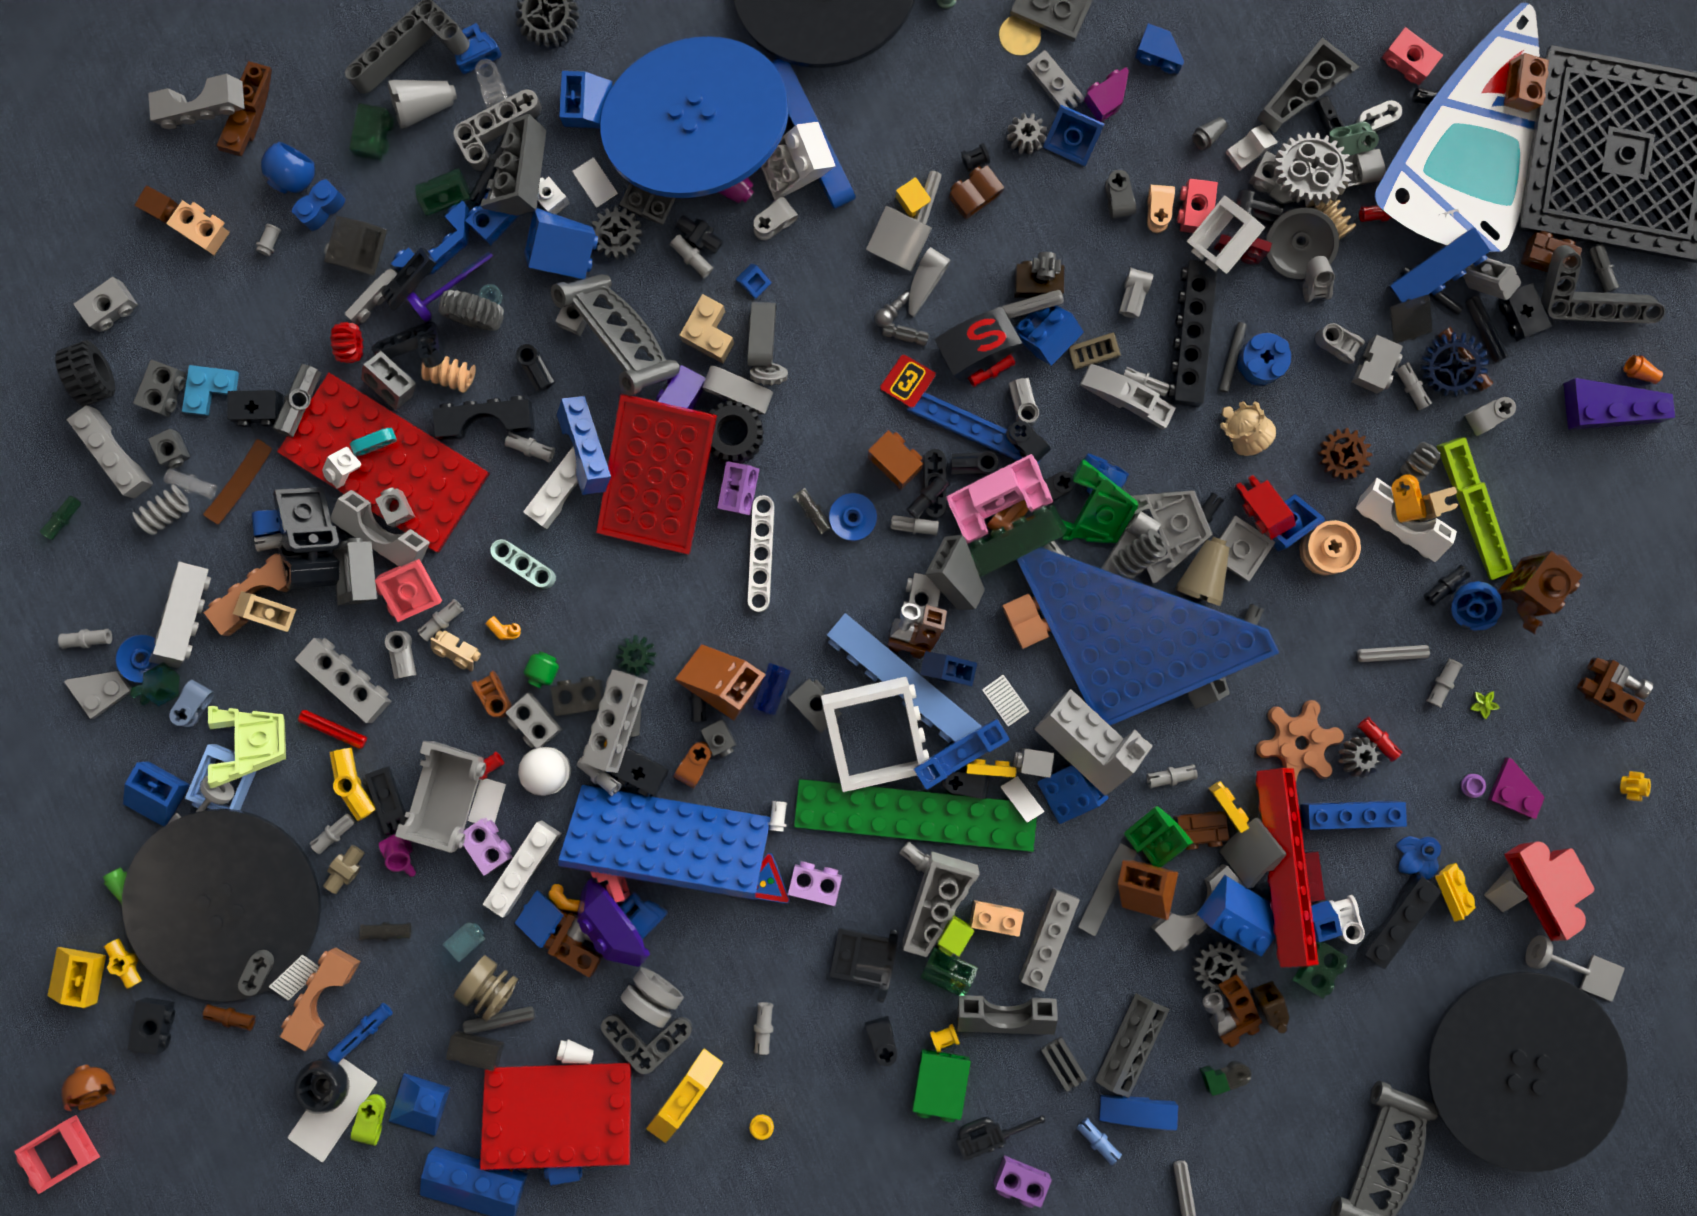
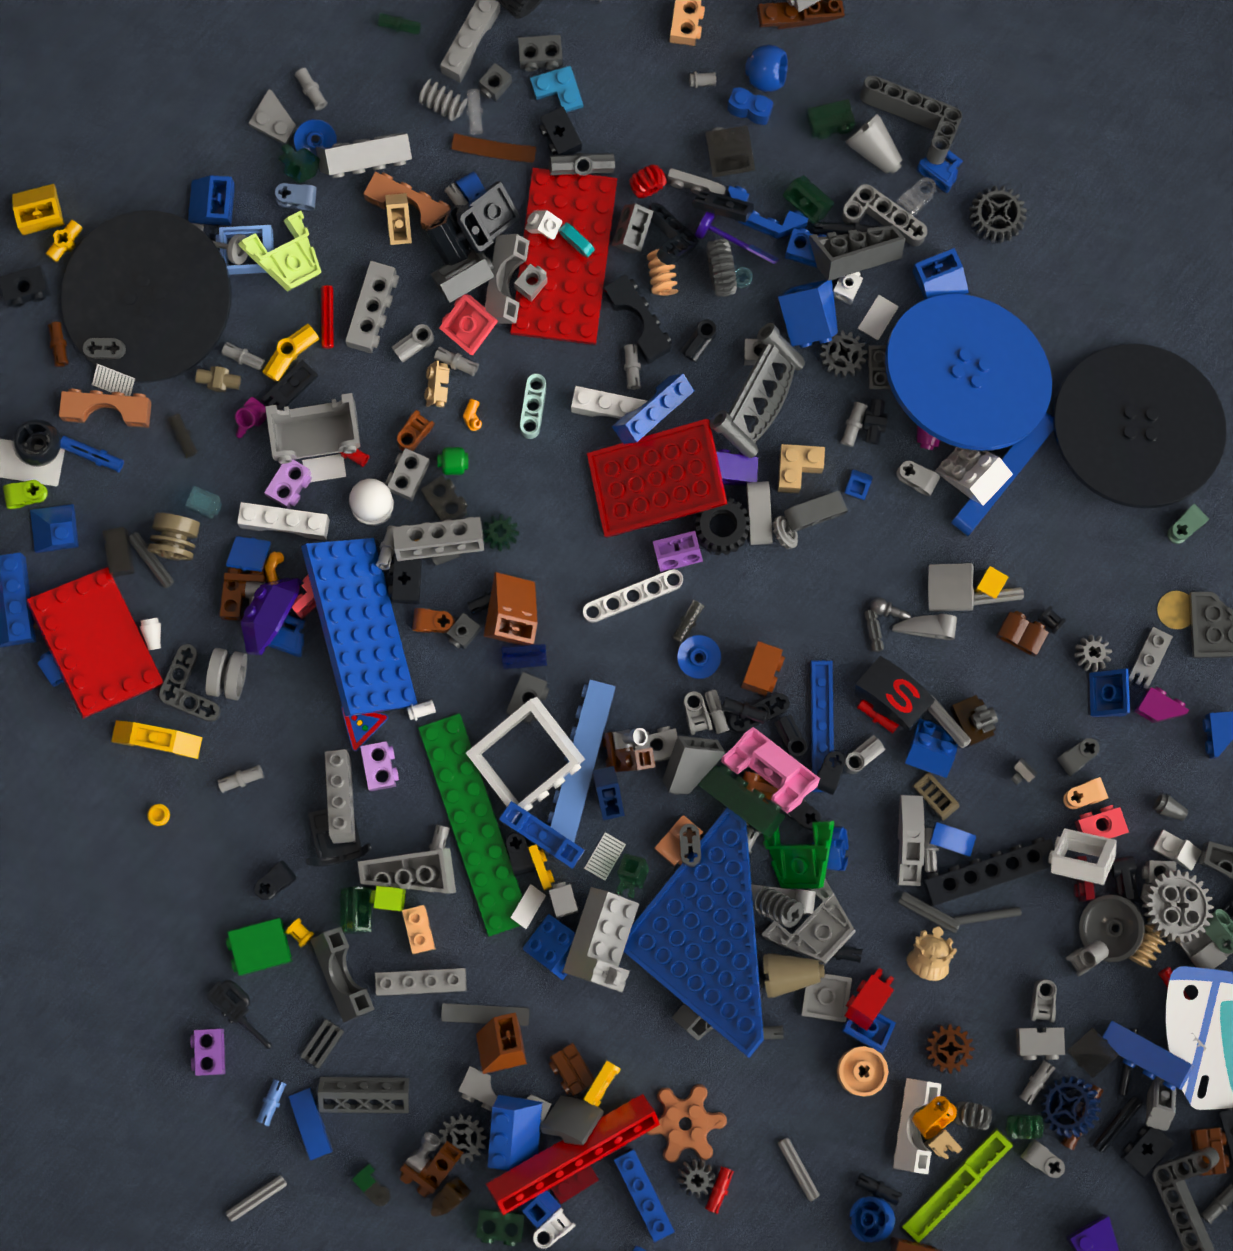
camera: 65 degrees right, 5 degrees down
(115, 882) = (125, 205): bright green cone -> none
(829, 938) = (340, 796): none -> light grey brick
(908, 381) = (835, 650): sticker -> none
(909, 545) = (697, 714): none -> light grey piece
(1038, 682) = (632, 874): none -> clear green brick
(1039, 606) = (695, 844): none -> dark grey beam
(1110, 256) = (1023, 771): none -> dark grey tile
(1136, 287) = (1007, 805): light grey piece -> none
(1145, 355) = (952, 839): none -> slope
(1158, 837) = (548, 1034): green slope -> none
(1171, 776) = (605, 1025): light grey pin -> none
(1205, 411) = (929, 912): none -> dark grey axle
(1275, 352) = (1003, 930): blue brick -> none
(1444, 682) = (793, 1224): light grey pin -> none
(1453, 417) = (1024, 1126): none -> clear green gear

